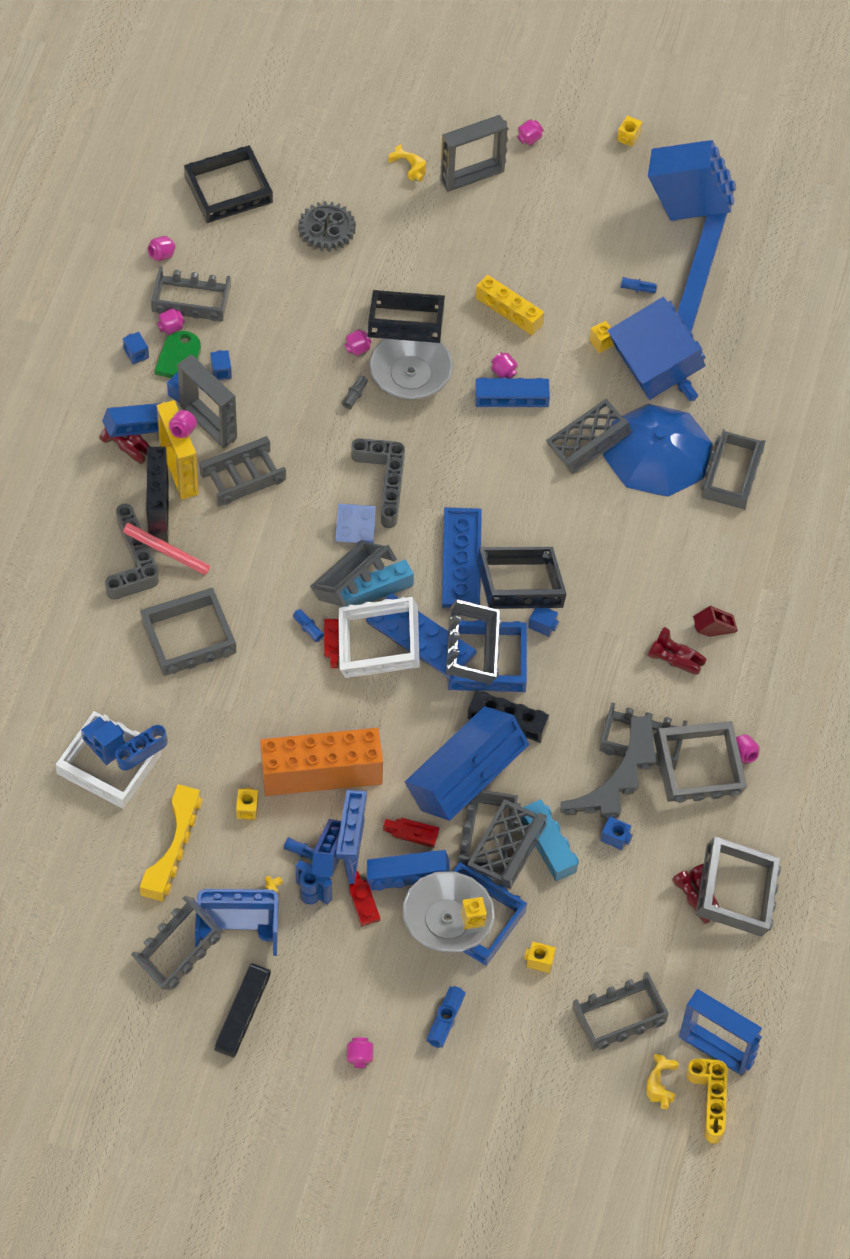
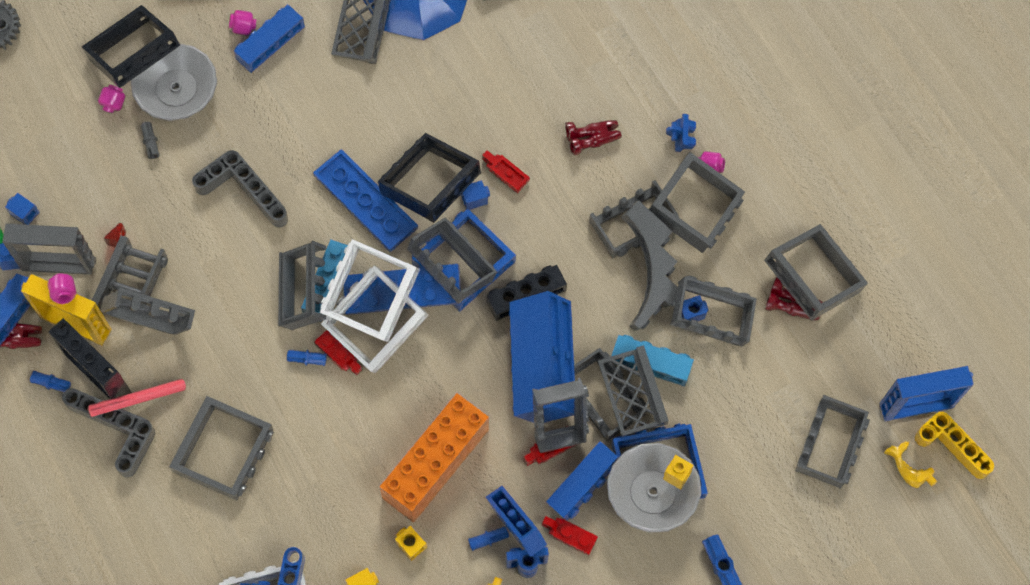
camera: 45 degrees left, 10 degrees up
(121, 490) = (49, 381): none -> blue axle
(226, 497) = (173, 322): none -> dark grey window
(260, 432) = (114, 235): none -> clear red slope
(351, 831) = (520, 490): fence -> none
(355, 523) = (260, 244): plate -> none
(403, 633) = (343, 269): none -> white window
(421, 827) = (568, 435): none -> dark grey window
(546, 951) = (741, 447): yellow brick -> none
(585, 624) = (505, 171): none -> red hinge
(642, 829) = (721, 294): none -> dark grey window
(714, 622) = (593, 88): dark red slope -> none
(755, 706) = (679, 133): none -> blue hips

